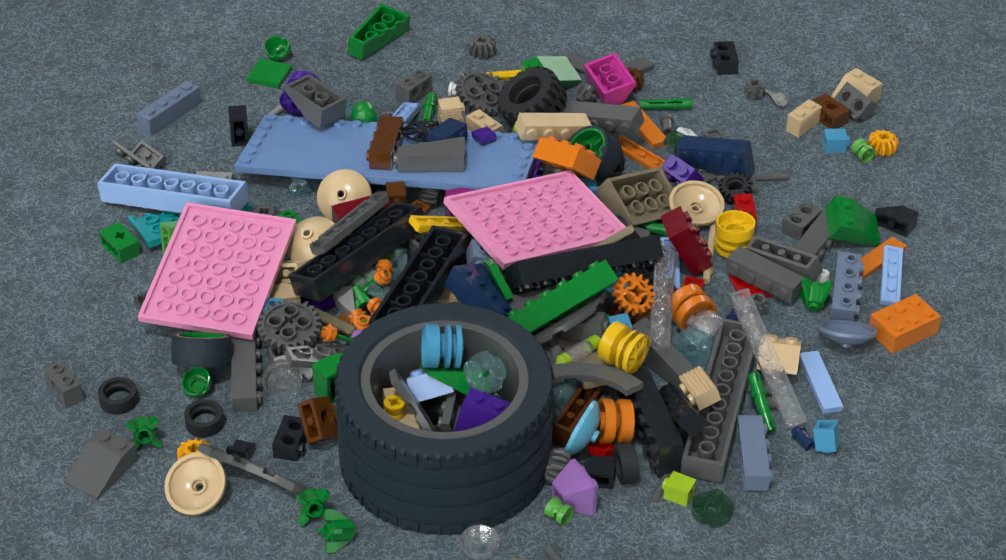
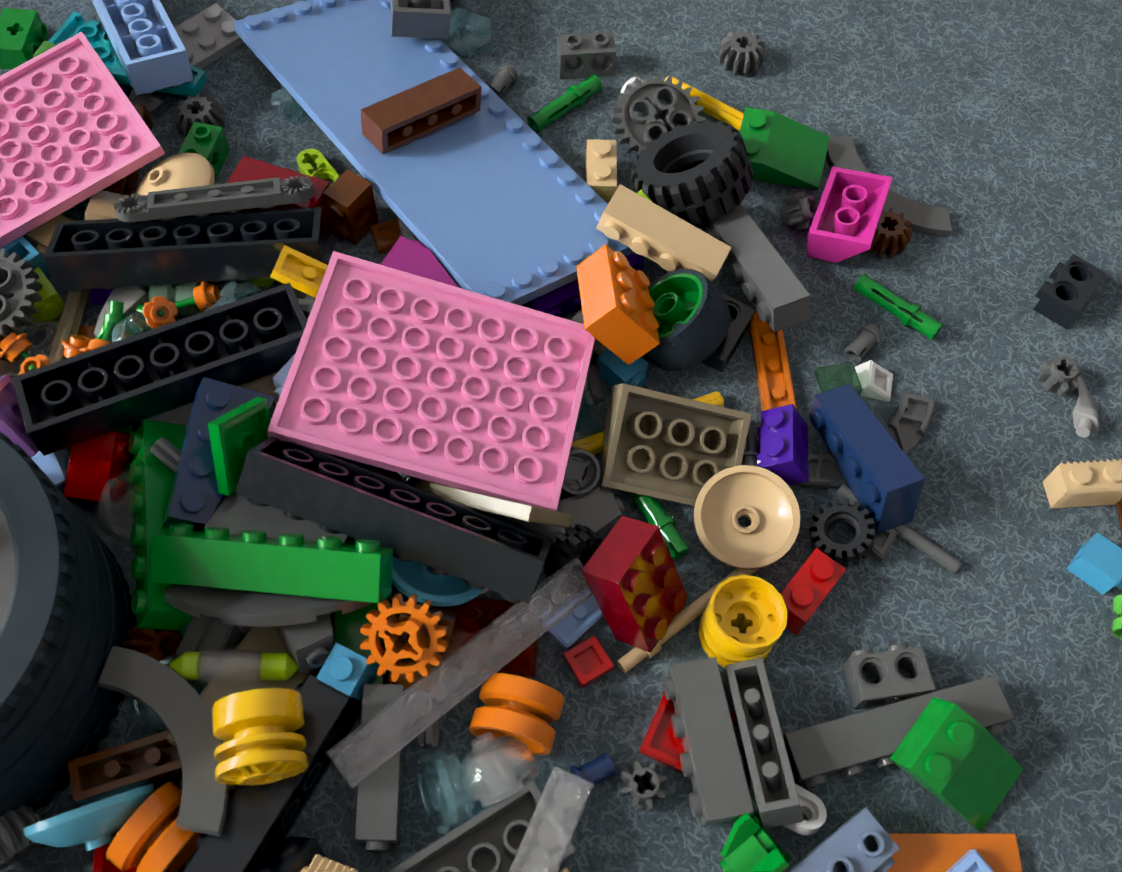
camera: 40 degrees right, 20 degrees up
(344, 180) = (306, 144): tan dish -> none
(364, 112) = (476, 52): green hair -> none
(407, 111) = (521, 85): light blue tile -> none
(421, 131) = (498, 124): black wheel -> none
(432, 156) = (445, 173): dark grey slope -> none
(448, 129) = (507, 153): dark blue brick -> none
(450, 108) = (571, 125): tan brick -> none
(484, 135) = (561, 185): dark purple tile -> none
(649, 130) = (830, 316): orange tile -> none
(897, 219) = (1058, 808): black slope -> none

